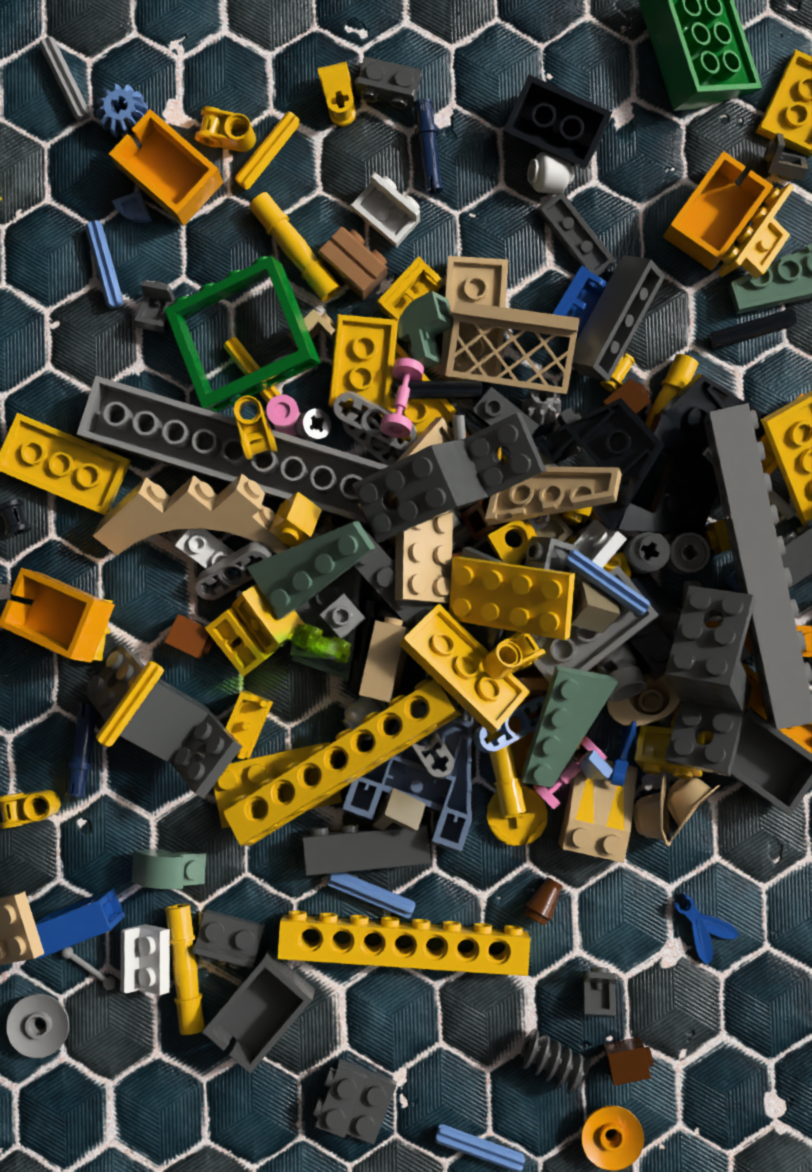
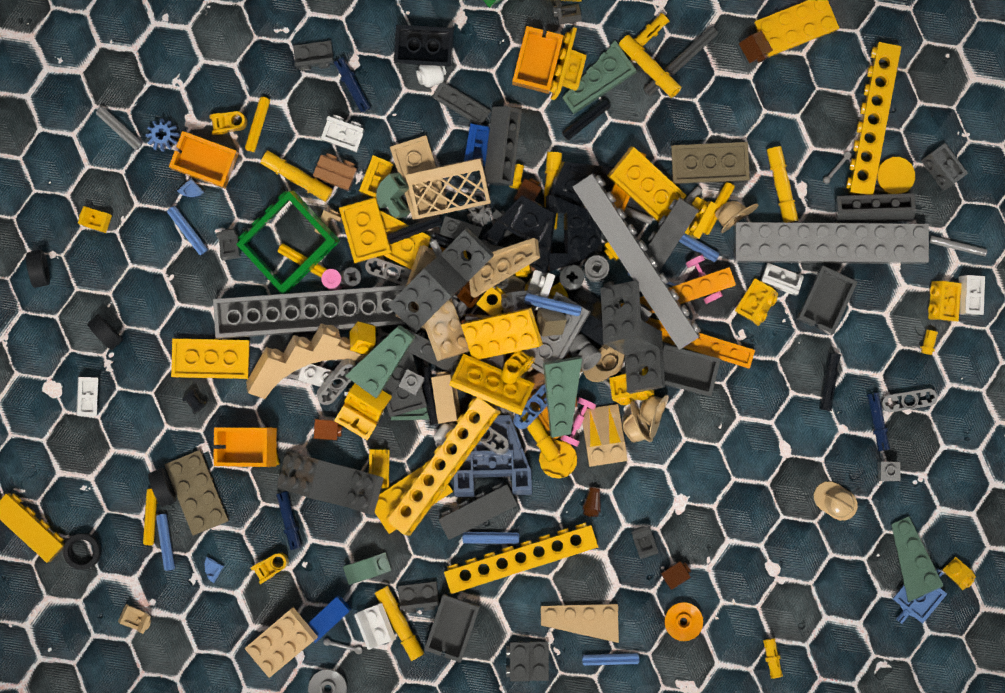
camera: 20 degrees left, 0 degrees up
(129, 704) = (311, 477): yellow axle -> none
(255, 429) = (319, 295): yellow piece -> none
(310, 639) = (402, 403): clear neon green plate -> none
(338, 92) = (284, 71): yellow piece -> none
(350, 418) = (400, 258): light grey beam -> none
(395, 424) = (393, 225): bright pink wheel -> none
(400, 809) = (487, 480): dark tan panel -> none
(464, 1072) = (589, 620): none -> tan wing
(554, 1061) = (633, 591): dark grey piece -> none
(595, 766) = (590, 412): tile -> none
(620, 764) = (604, 405): blue piece -> none
(703, 925) = (691, 480): blue piece -> none

